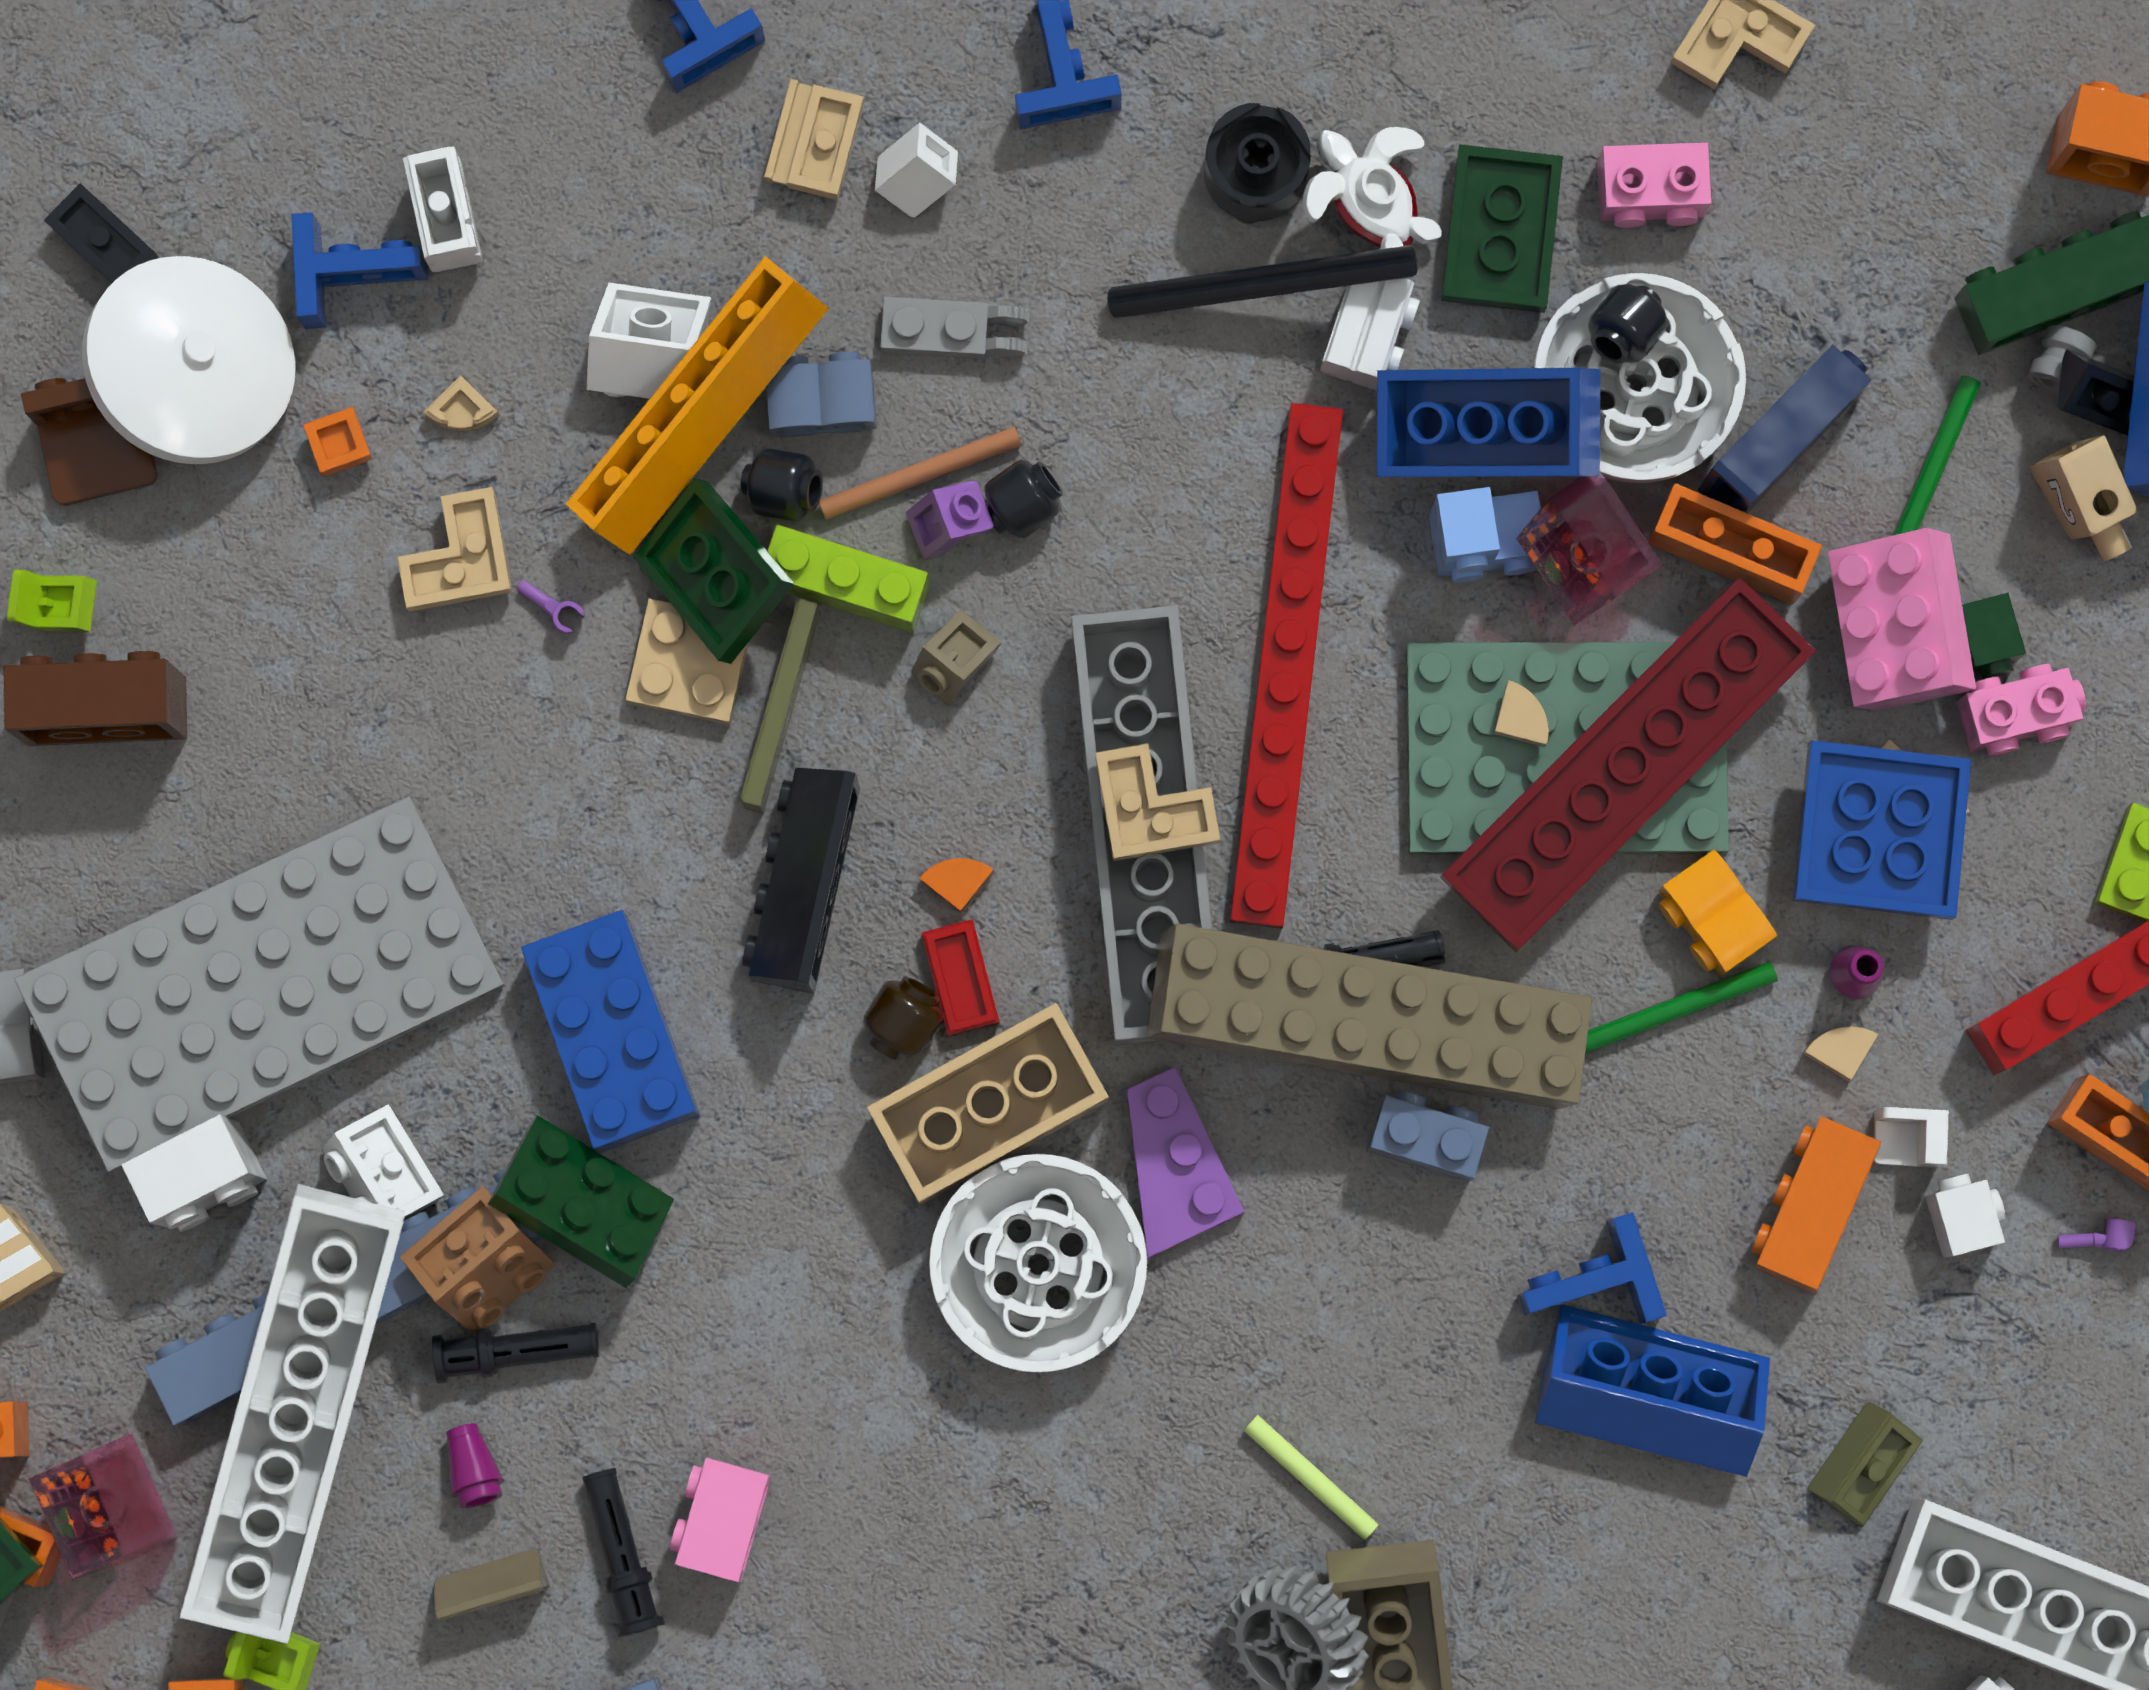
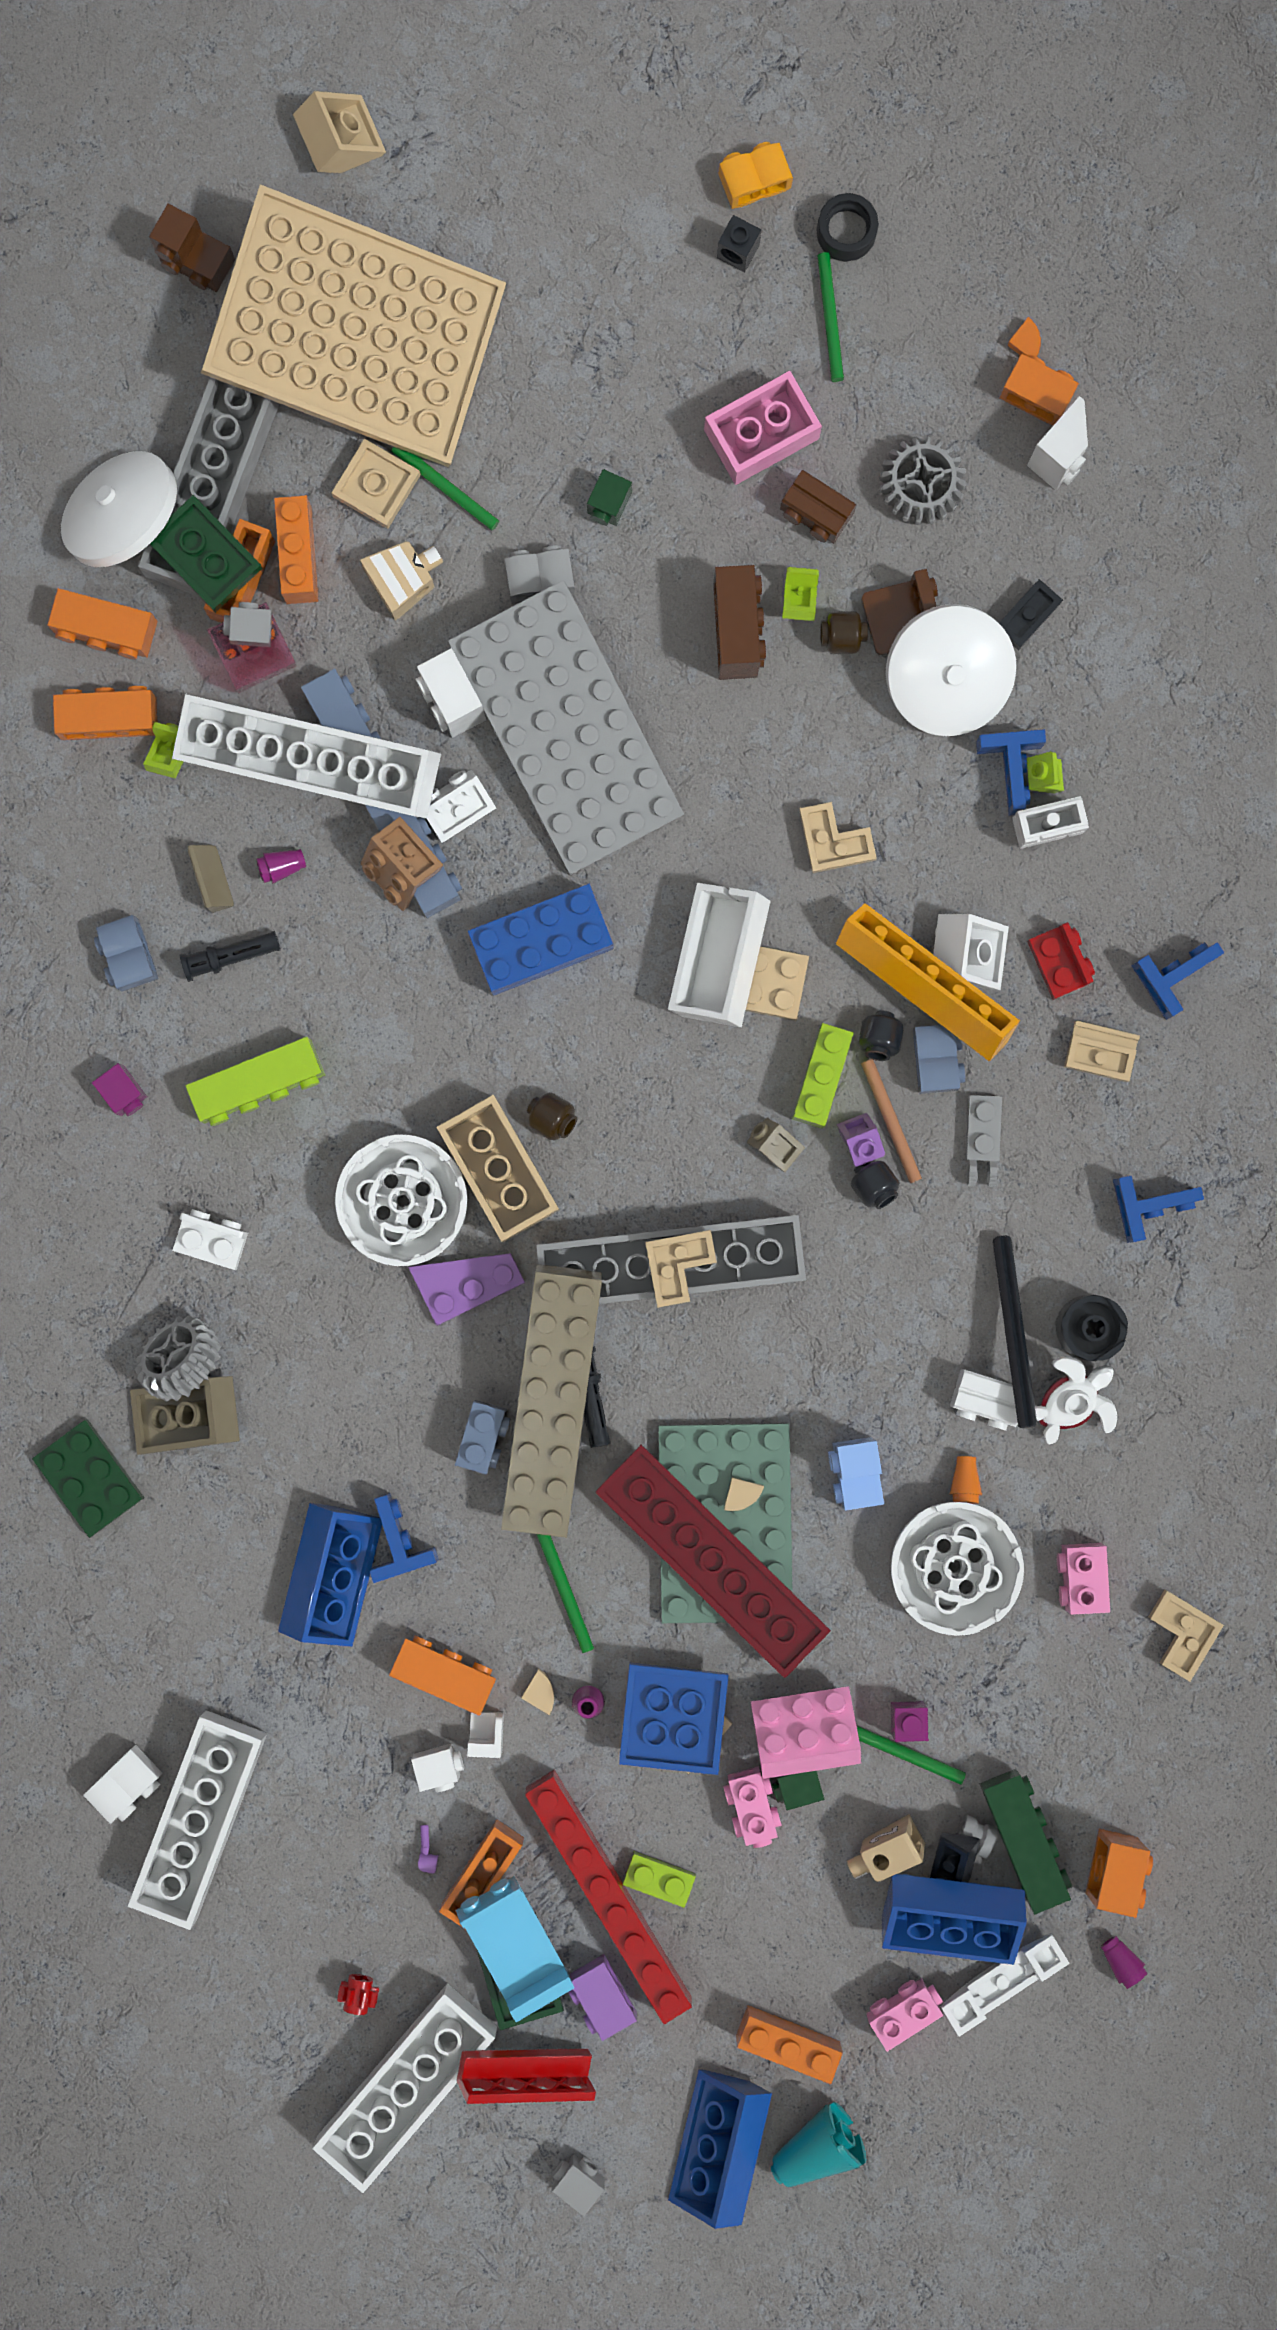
camera: 90 degrees right, 5 degrees up
(68, 1504) = (248, 625): none -> light grey brick
(118, 533) = (843, 632): none -> dark brown head
(337, 441) = (903, 763): orange plate -> none
(362, 216) = (1045, 773): none -> lime bracket
(461, 408) = (927, 838): tan tile -> none
(484, 1354) = (347, 872): black pin -> none
(549, 605) = (804, 896): medium lavender hand -> none
(581, 1201) = (436, 924): dark green plate -> none
(643, 738) = (719, 954): none -> white piece
(666, 198) = (1061, 960): none -> red bracket
(713, 571) = (824, 994): dark green plate -> none
(721, 1519) = (248, 1013): bright pink brick -> none
(780, 705) = (743, 1038): olive tile -> none
(803, 879) = (634, 1054): black slope -> none
(834, 1510) = (256, 1081): none -> lime brick
(916, 170) = (1083, 1115): white panel -> none
(957, 880) = (637, 1148): orange tile -> none
(960, 978) = (578, 1151): red tile -> none
(1099, 1589) = (209, 1240): none -> white bracket
(1286, 666) = (775, 1349): red plate -> none
(1311, 1477) = (278, 1367): yellowish green bar -> none
(1488, 422) = (924, 1473): blue brick -> none
(1499, 356) = (966, 1481): none -> orange cone
(1502, 228) = (1054, 1482): dark green plate -> none
(1587, 547) = (848, 1535): clear pink slope -> none
(1627, 323) = (988, 1560): black head -> none
(1715, 914) = (621, 1615): light orange brick -> none
(1734, 544) = (853, 1627): orange brick -> none
(1786, 430) = (925, 1661): dark blue slope -> none
(1865, 1463) = (288, 1704): olive slope -> none
(1882, 459) = (909, 1721): none -> magenta brick

